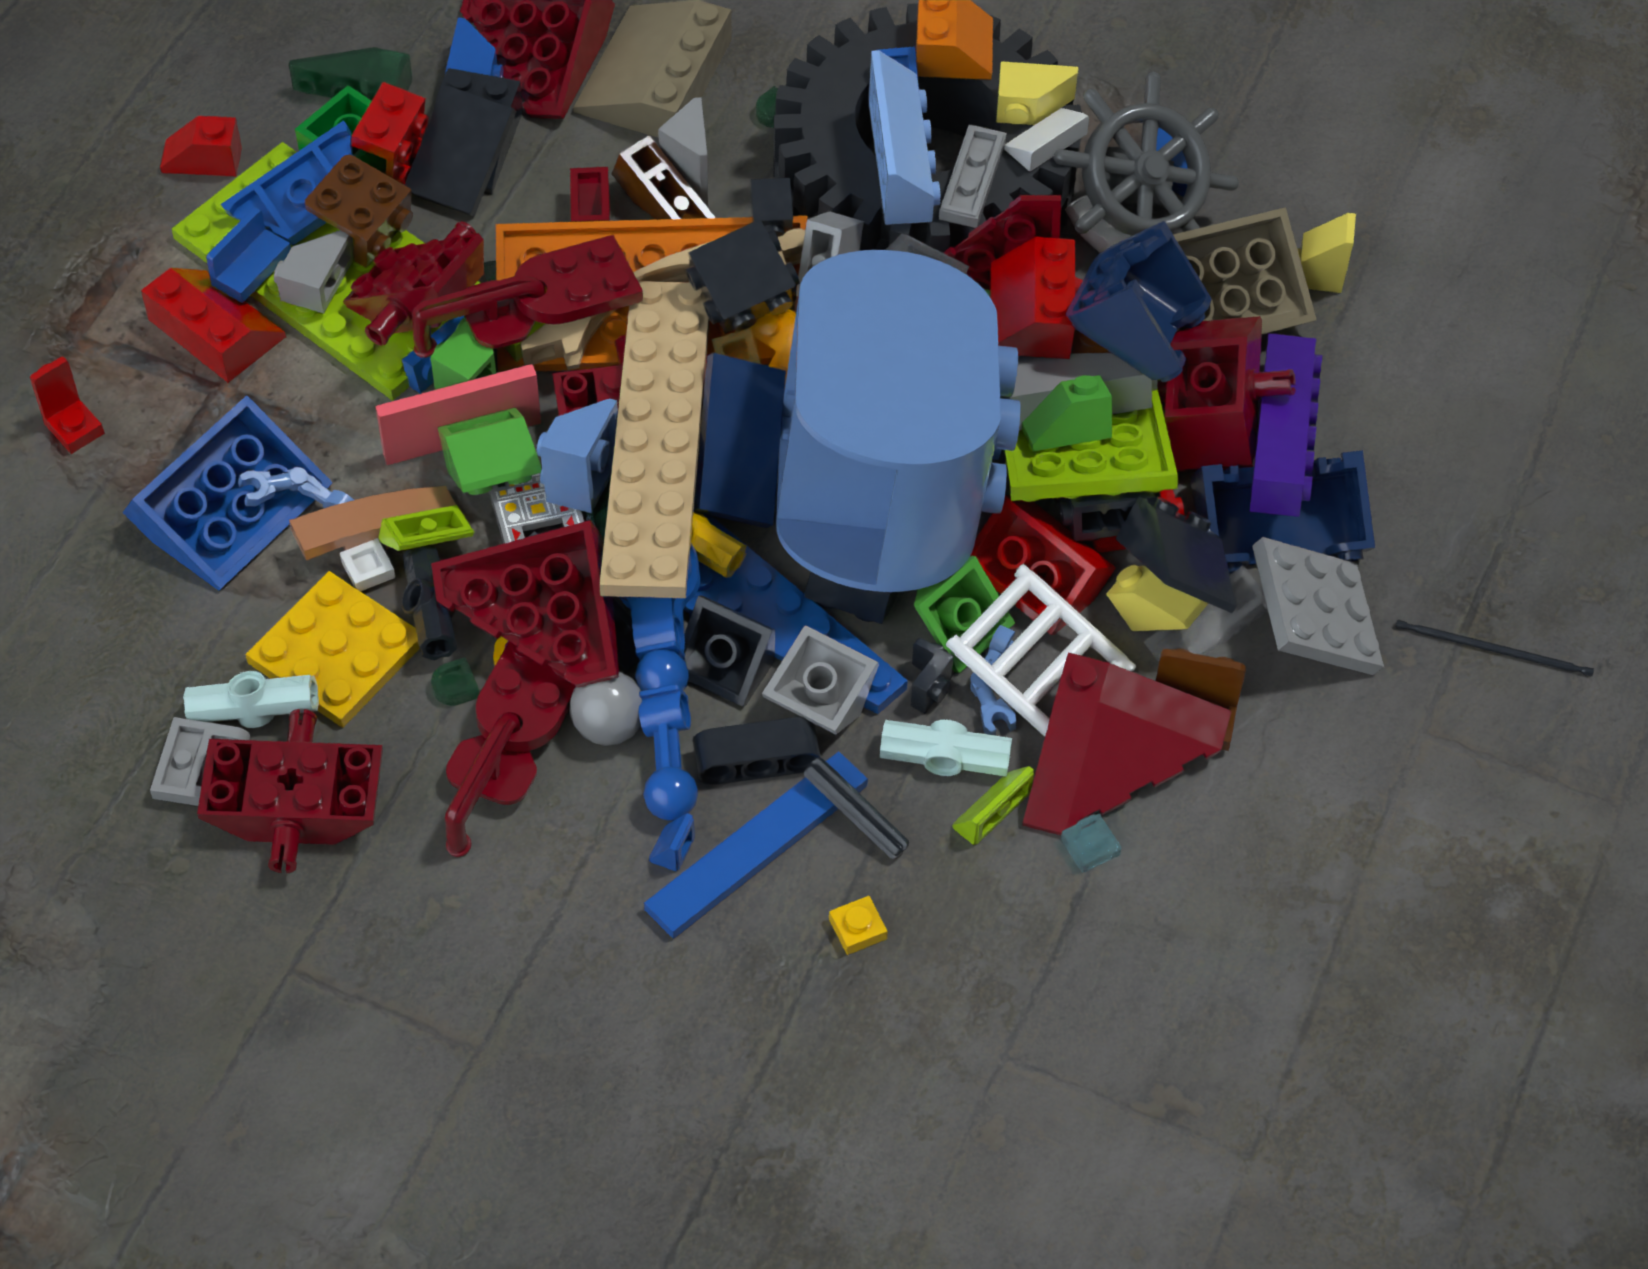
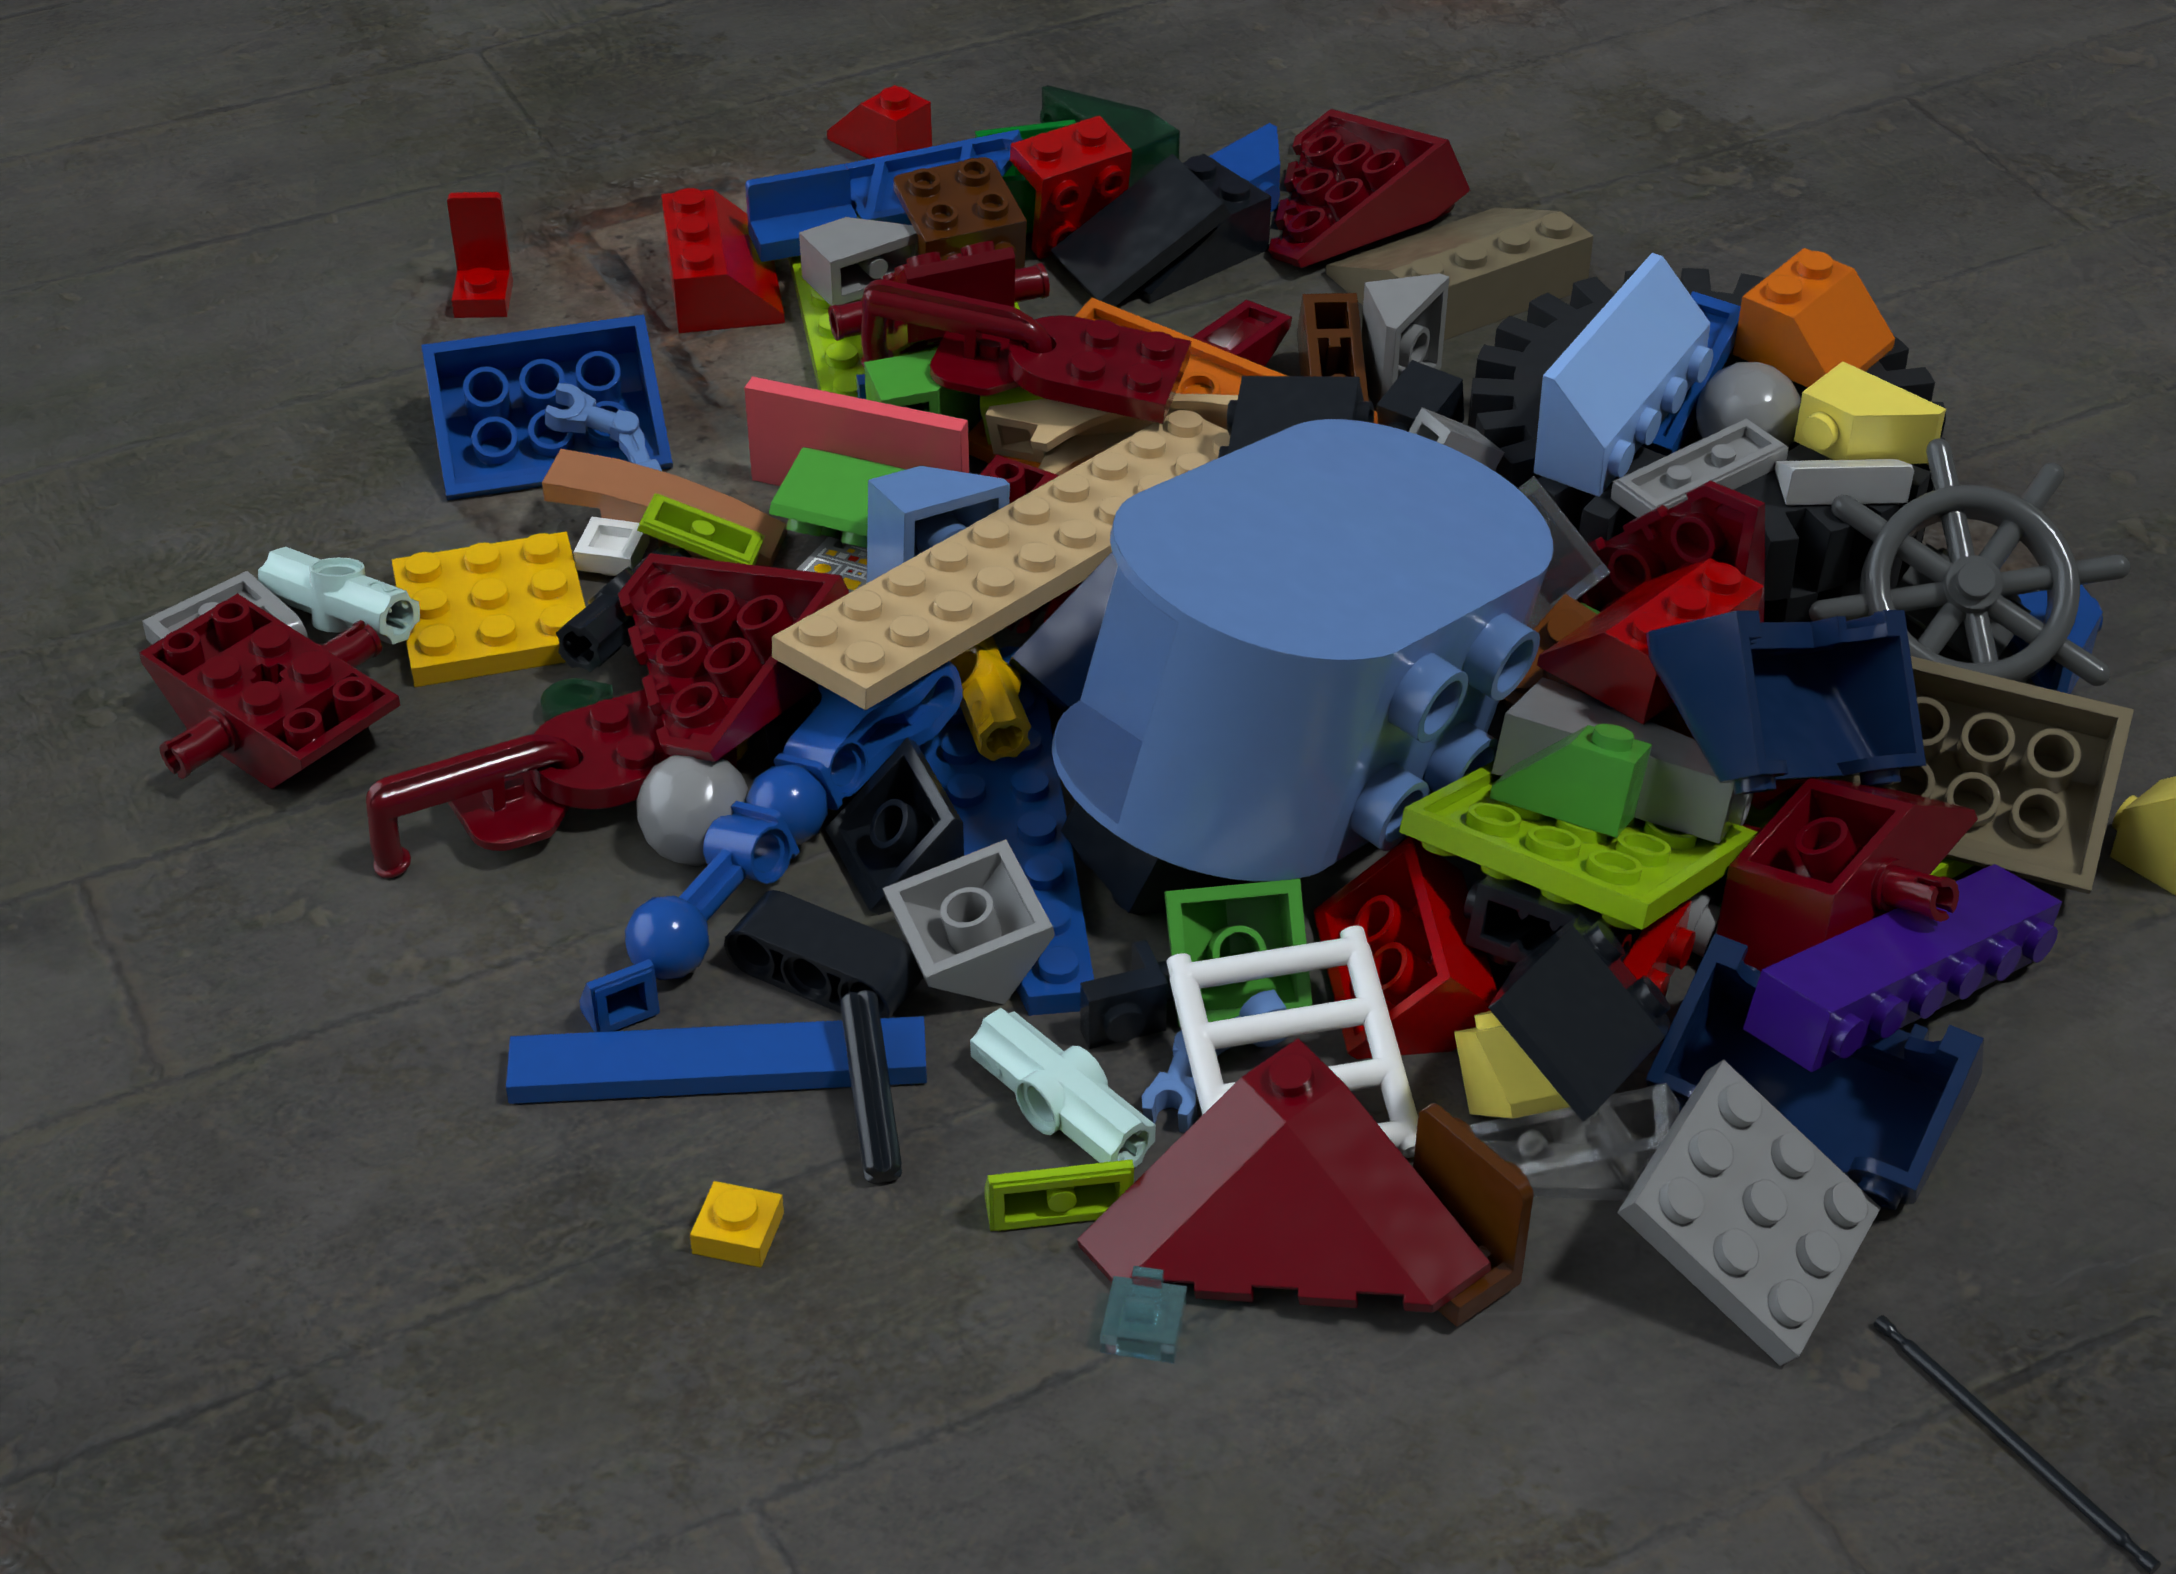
camera: 40 degrees right, 15 degrees down
(952, 109) = (1752, 393): none -> light grey piece

